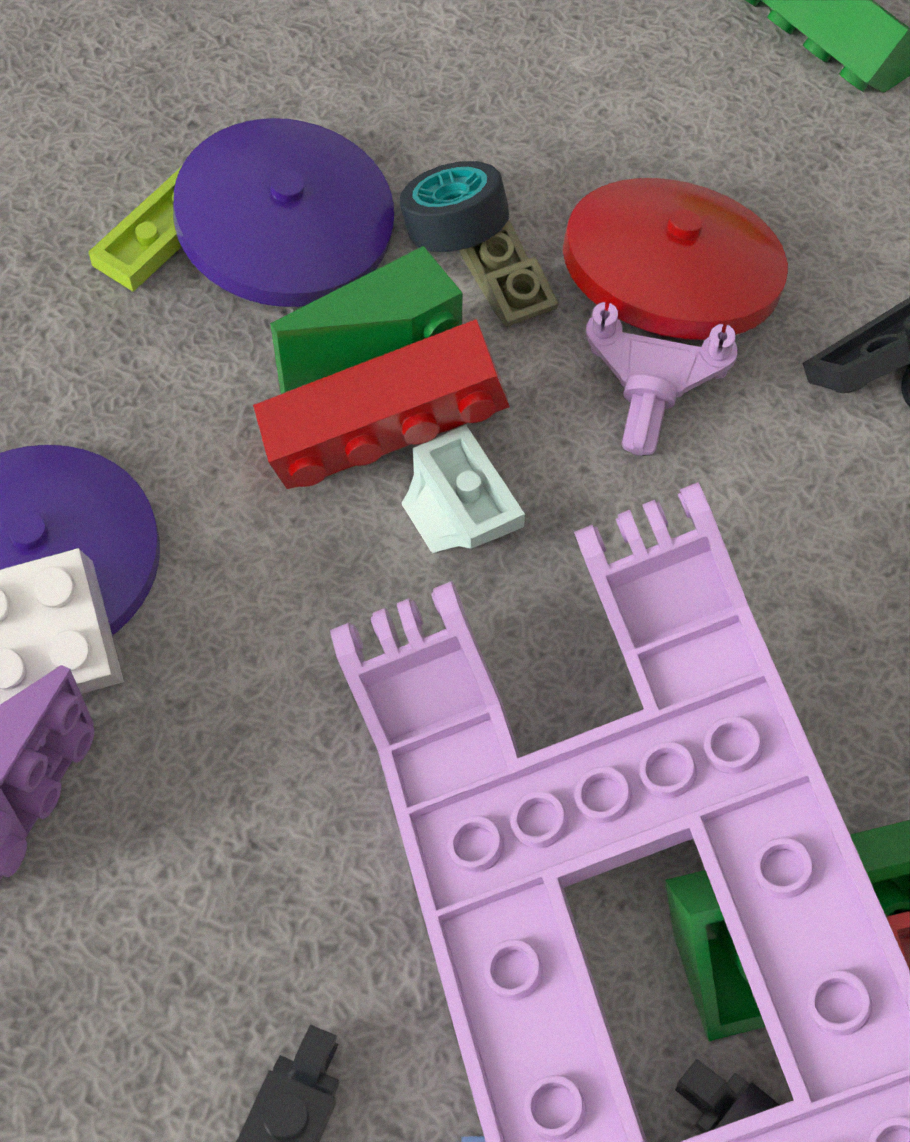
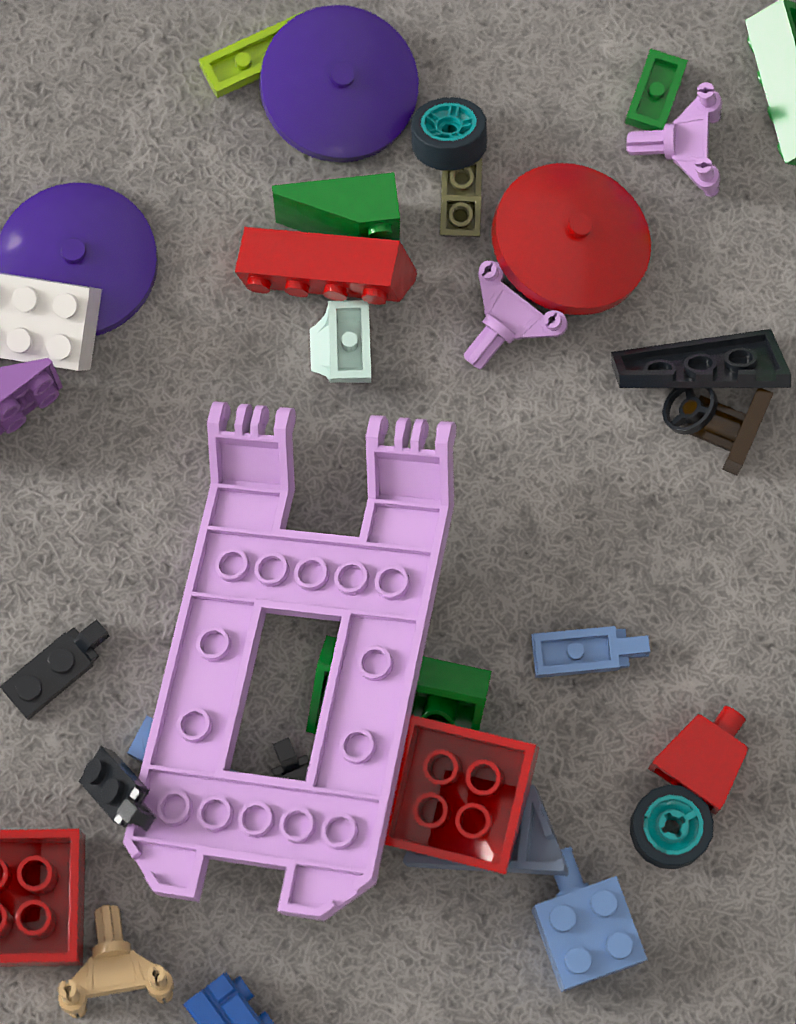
camera: 25 degrees right, 15 degrees up
(668, 79) = (656, 91): none -> green plate
(742, 107) = (686, 140): none -> lavender axle

